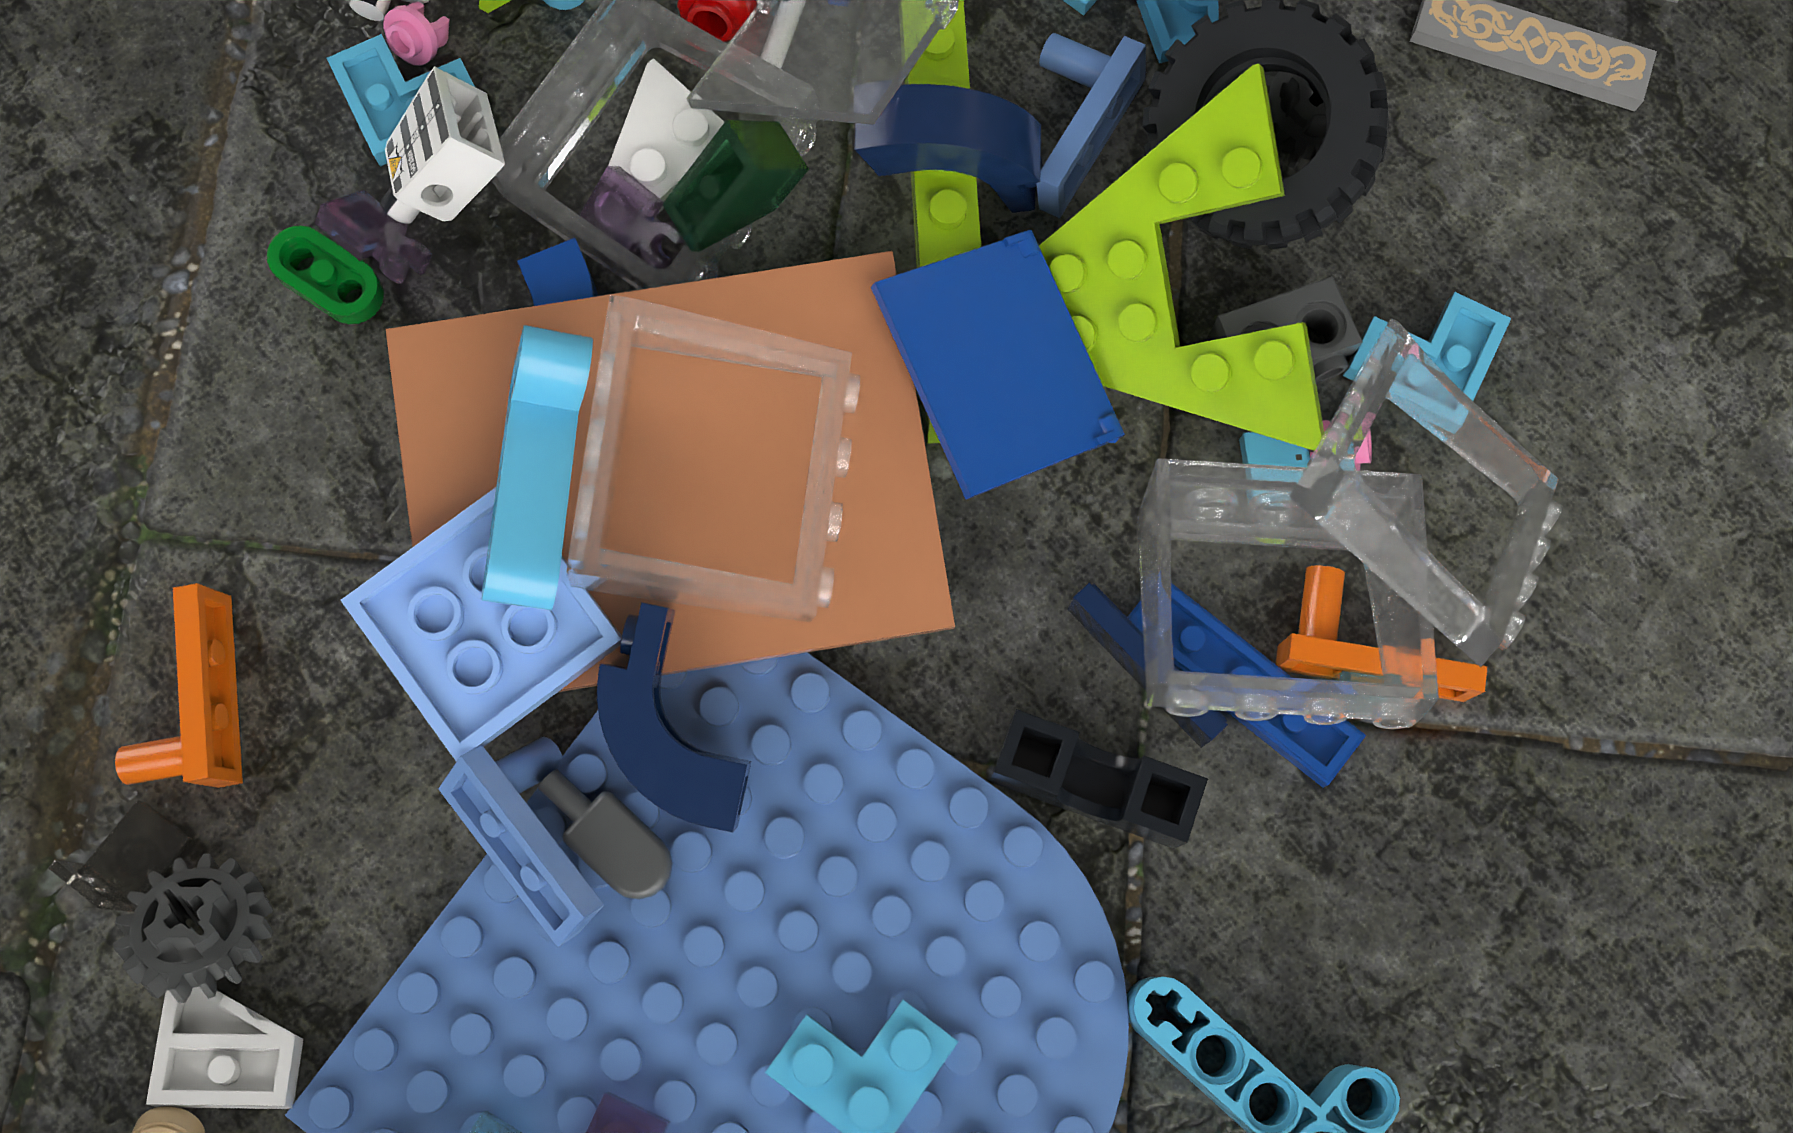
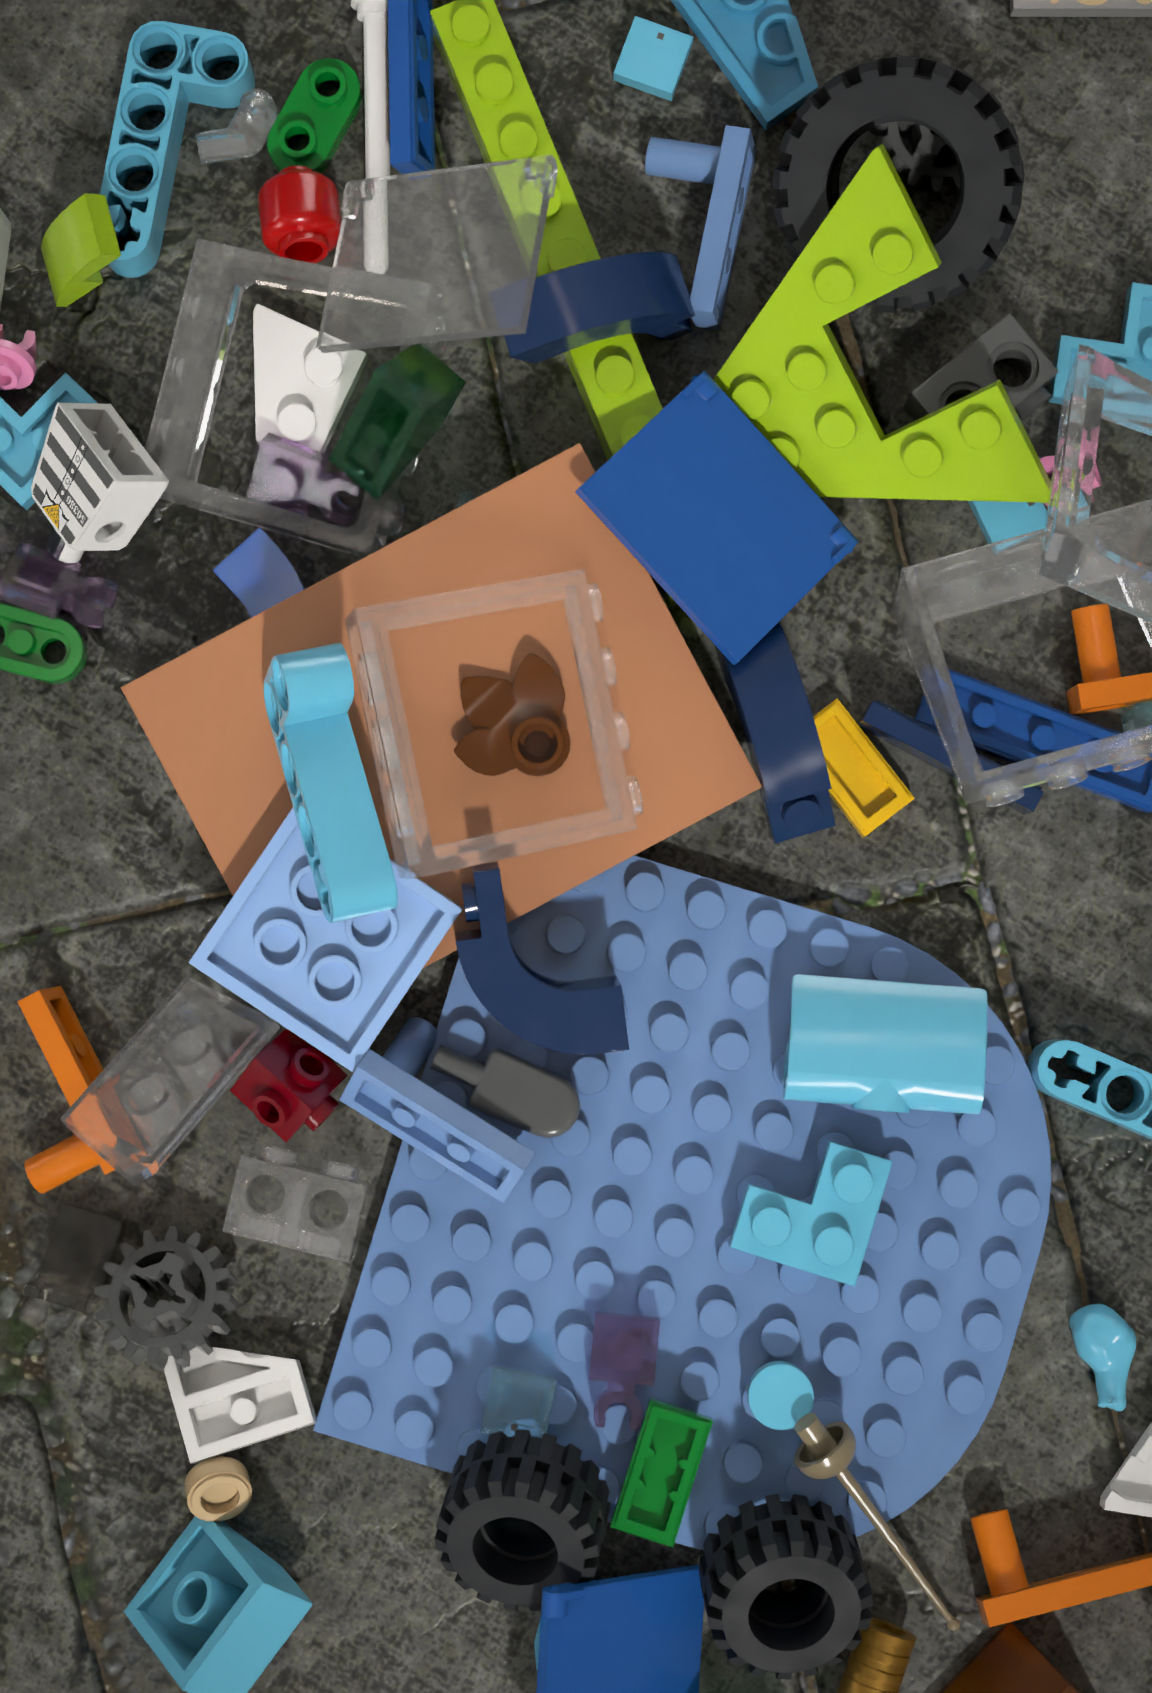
camera: 15 degrees left, 10 degrees up
(280, 710) = (167, 1078): none -> clear slope
(354, 893) = (295, 1221): none -> clear brick
(397, 759) = (290, 1085): none -> dark red brick
(733, 475) = (507, 714): none -> reddish brown plate
(989, 589) = (781, 737): none -> dark blue arch
(991, 920) = (886, 1045): none -> medium azure panel
(1047, 646) = (858, 774): none -> yellow tile
(1113, 789) = (940, 883): black arch -> none

